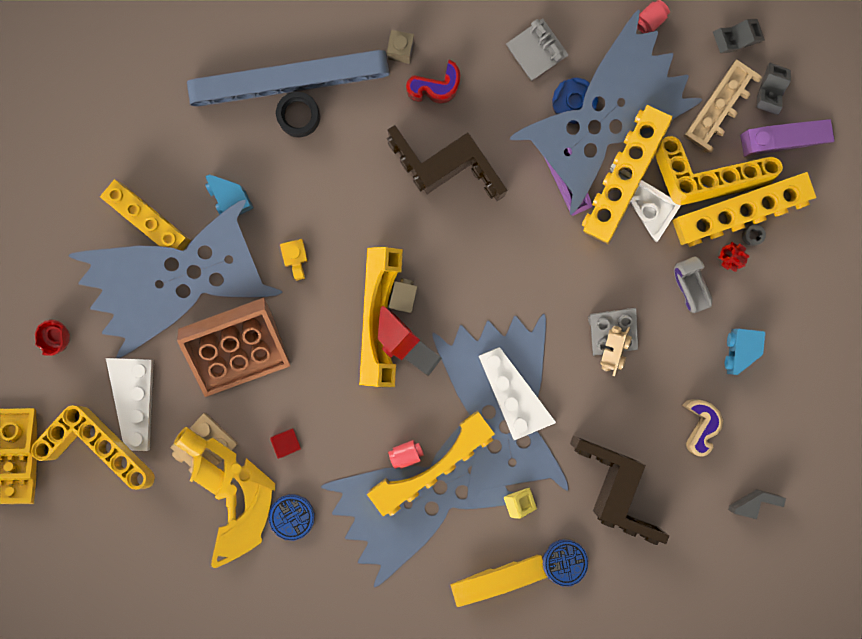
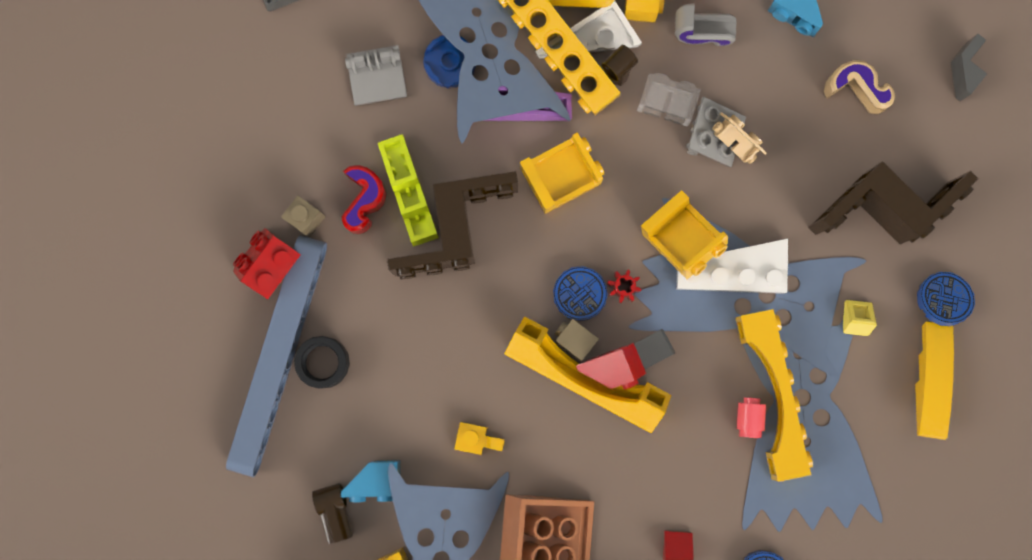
camera: 65 degrees left, 5 degrees down
(191, 176) = (333, 512): none -> dark brown piece
(351, 34) = (265, 263): none -> red bracket
(440, 284) = (580, 293): none -> tile
(458, 116) = (407, 190): none -> neon yellow slope
(459, 308) = (623, 294): none -> red gear
(520, 342) = (684, 236): none -> yellow panel
(526, 227) = (562, 173): none -> yellow panel
(623, 282) = (669, 97): none -> clear piece
(629, 231) = (619, 65): none -> dark brown piece

